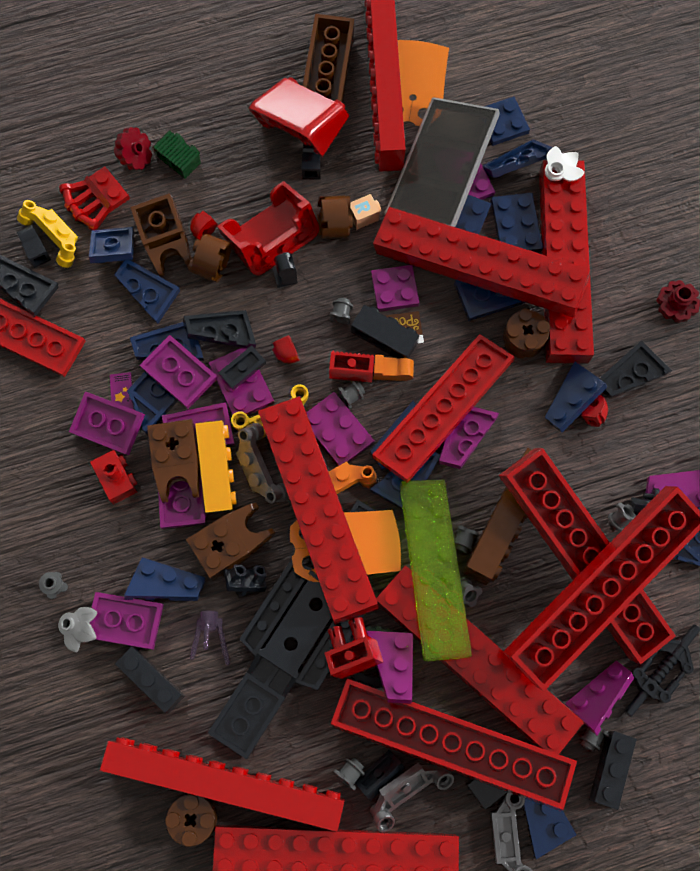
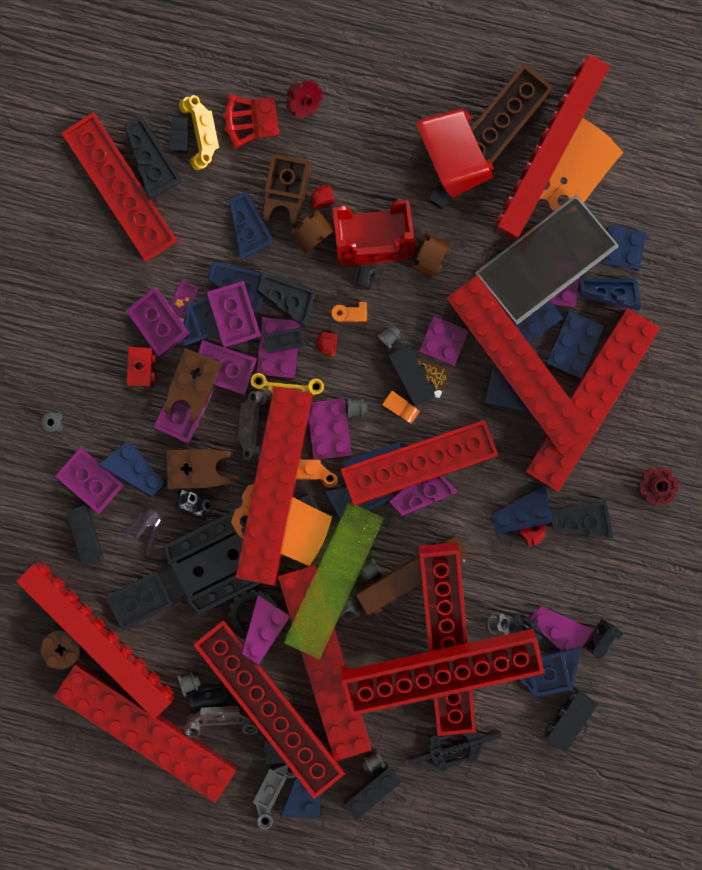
camera: 30 degrees right, 15 degrees up
(79, 627) = (55, 467): light grey plate -> none
(111, 245) = (241, 173): dark blue plate -> none
(177, 154) = (338, 121): dark green brick -> none
(214, 466) = (219, 405): light orange brick -> none
(292, 312) = (350, 314): none -> orange leg
(351, 366) = (368, 388): red brick -> none
(355, 655) = (232, 609): red brick -> none
(364, 211) = (459, 262): light nougat brick -> none
(534, 326) = (530, 445): reddish brown brick -> none
(564, 164) = (639, 323): white plate -> none
(599, 696) = (394, 738): magenta wing -> none

